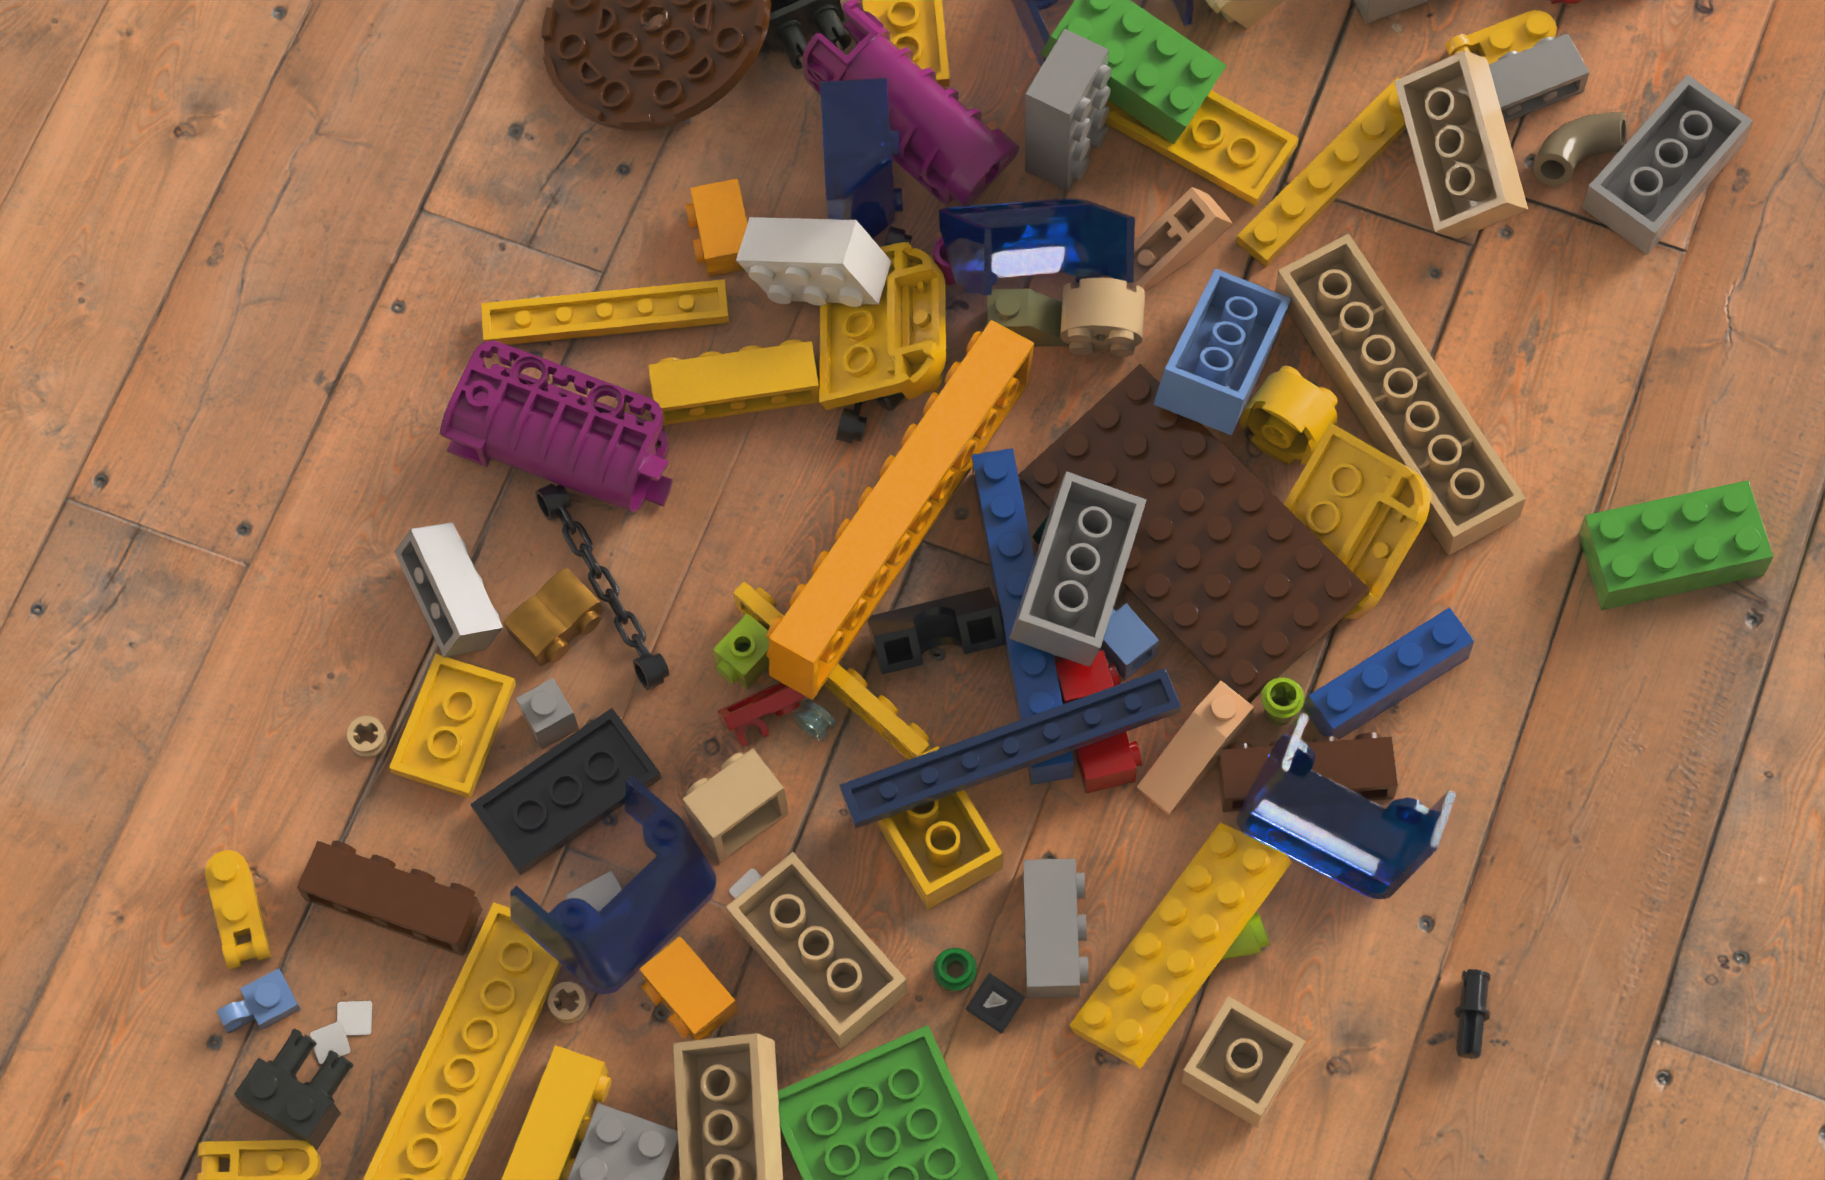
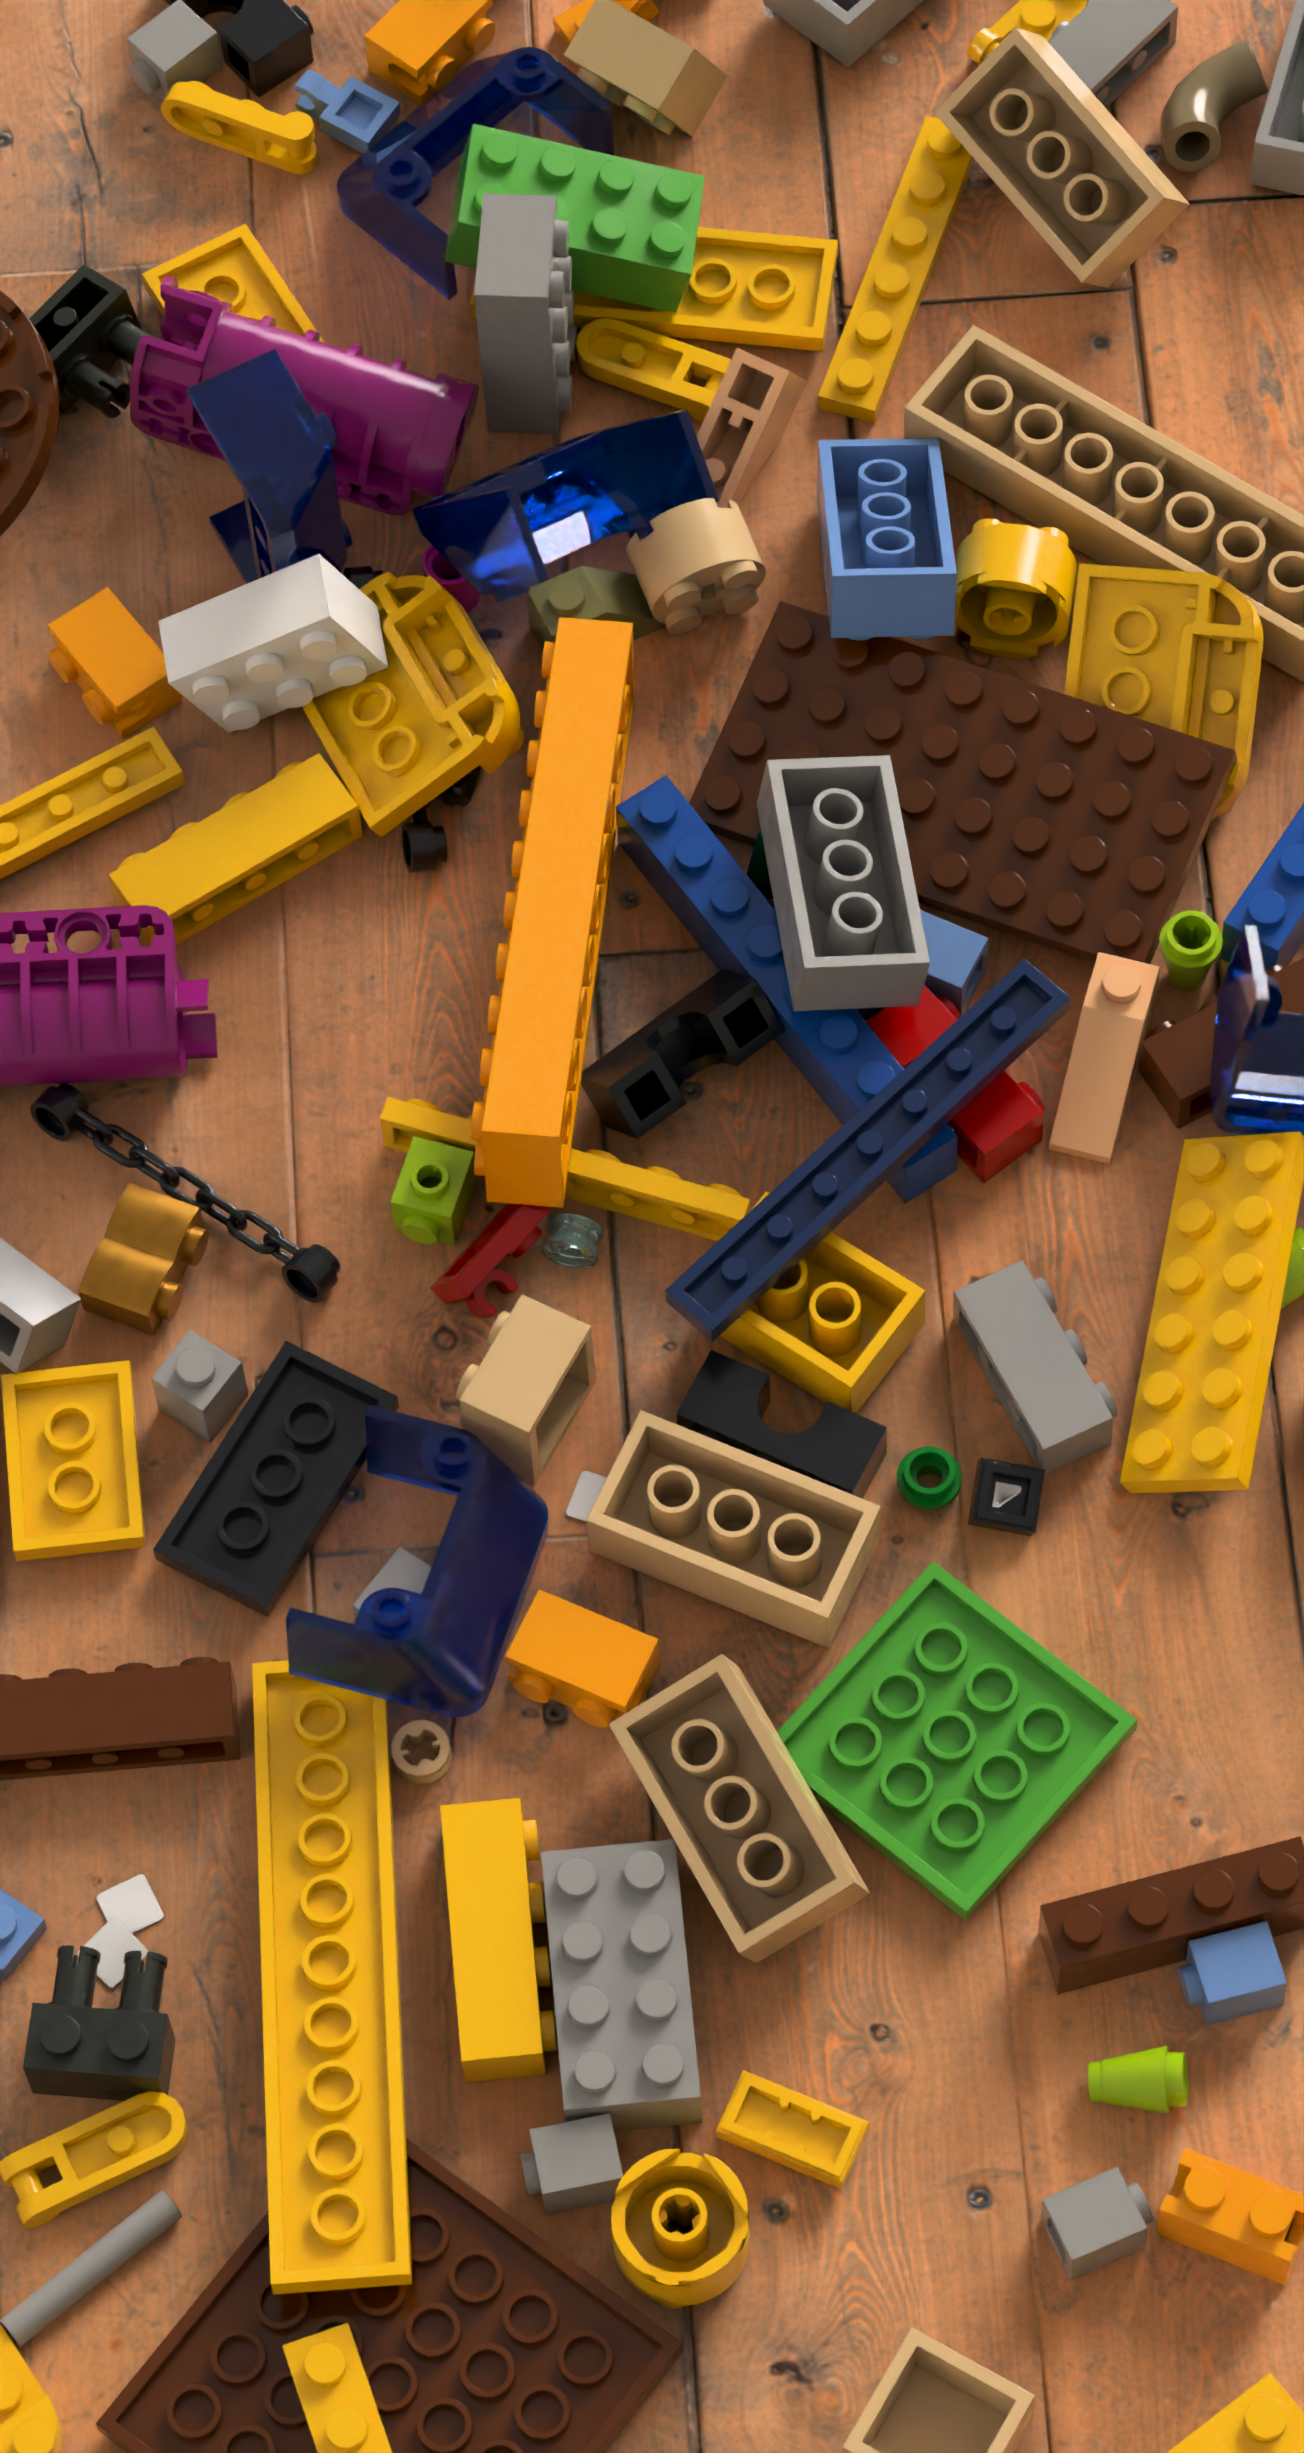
camera: 25 degrees left, 5 degrees down
(898, 931) = (729, 1407): none -> black arch
(1141, 169) = (650, 364): none -> yellow plate

